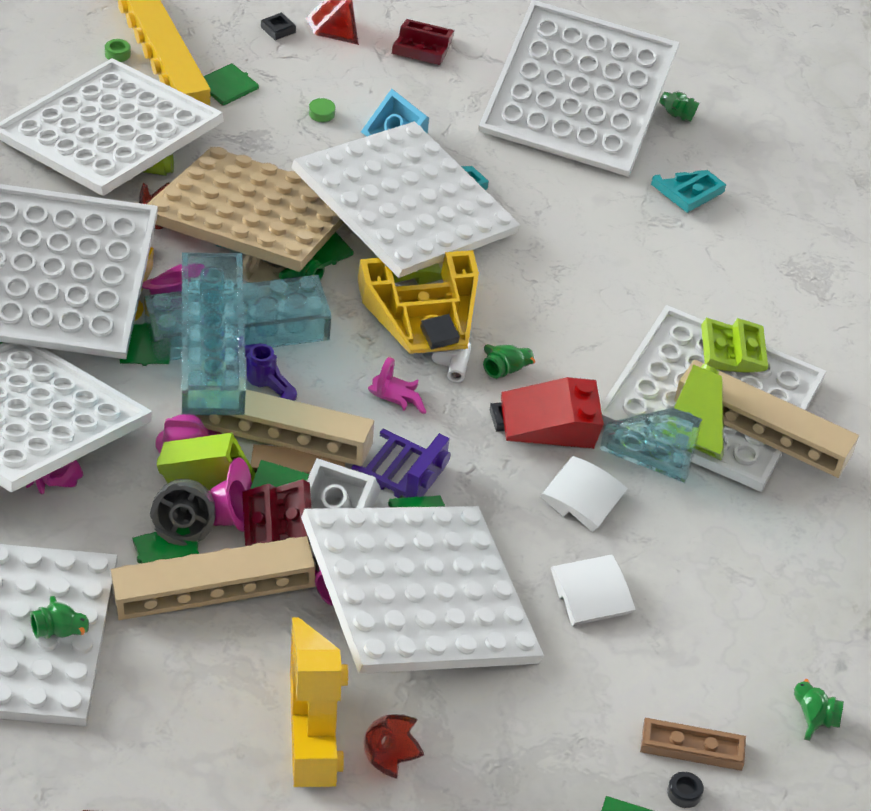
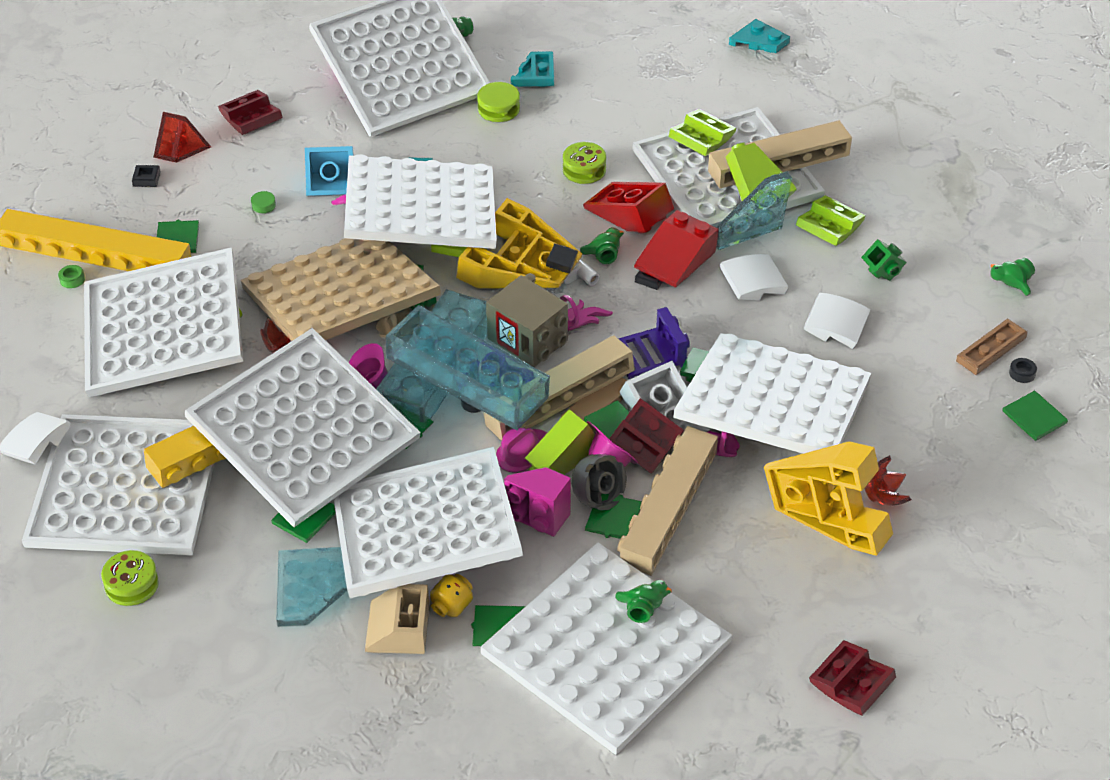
camera: 45 degrees left, 0 degrees up
(119, 479) = (540, 499): none -> dark pink slope
(339, 351) = (527, 320): none -> dark tan container
(581, 349) = (632, 204): none -> red slope
(602, 286) = (584, 162): none -> lime head
(616, 185) = (498, 101): none -> lime head
(710, 581) = (884, 260): none -> green brick
(733, 514) = (830, 220): none -> lime slope

